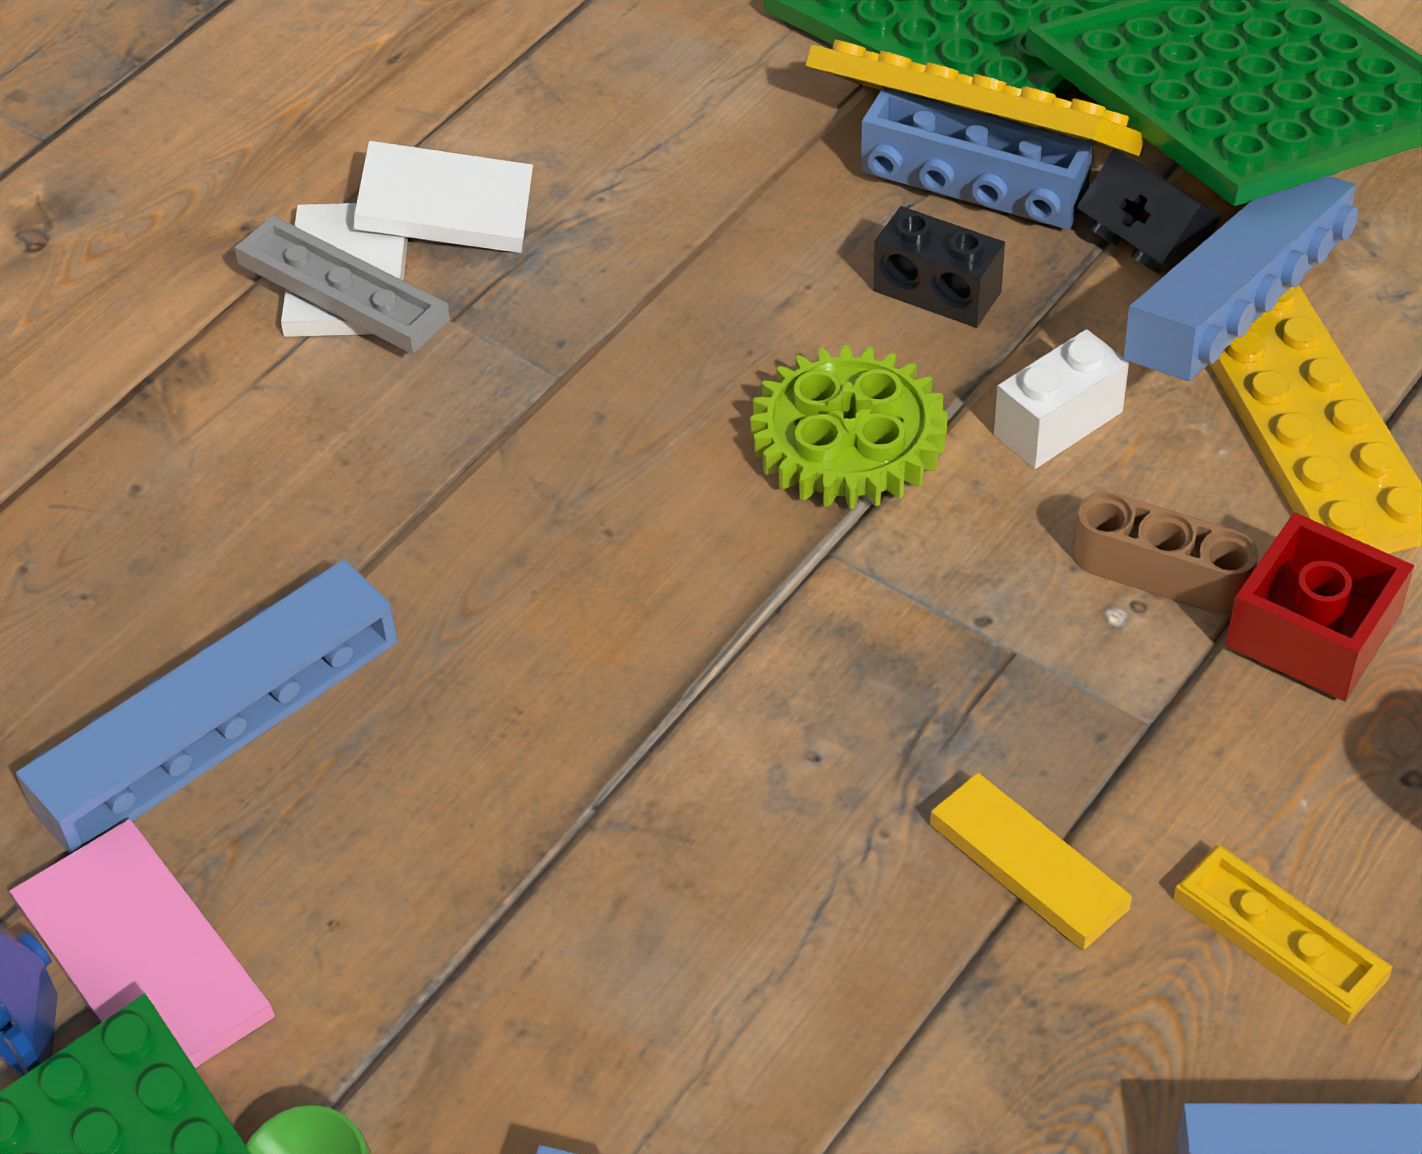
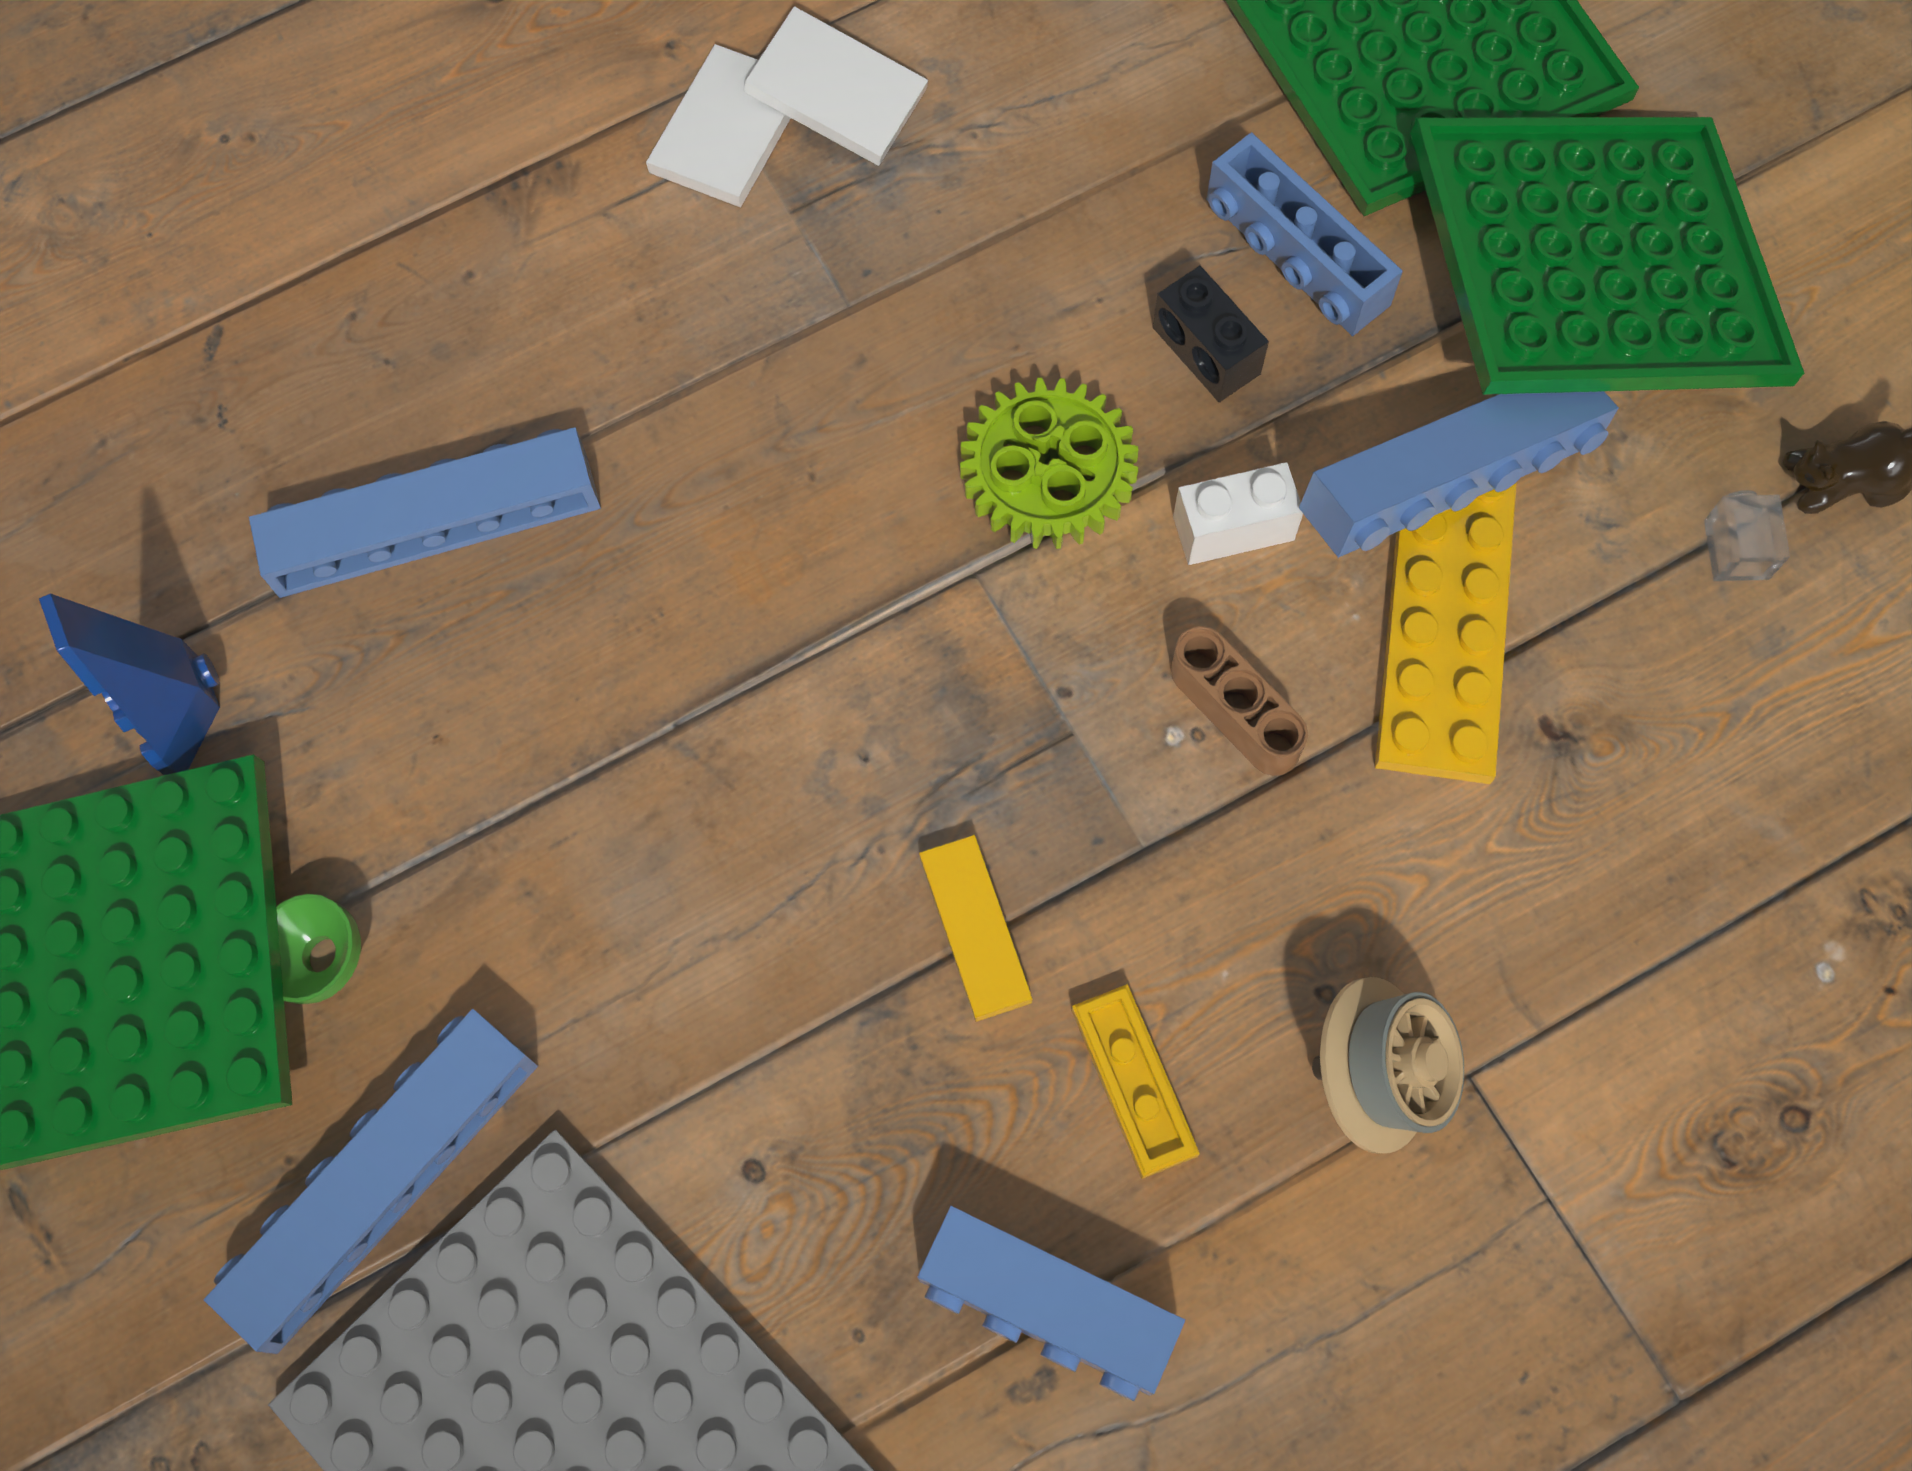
camera: 25 degrees right, 20 degrees up
(131, 930) = (289, 698): bright pink tile -> none
(343, 284) = (705, 148): light grey plate -> none
(978, 94) = (1327, 181): yellow plate -> none
(1129, 190) = (1421, 356): black brick -> none
(1319, 605) = (1330, 813): red brick -> none

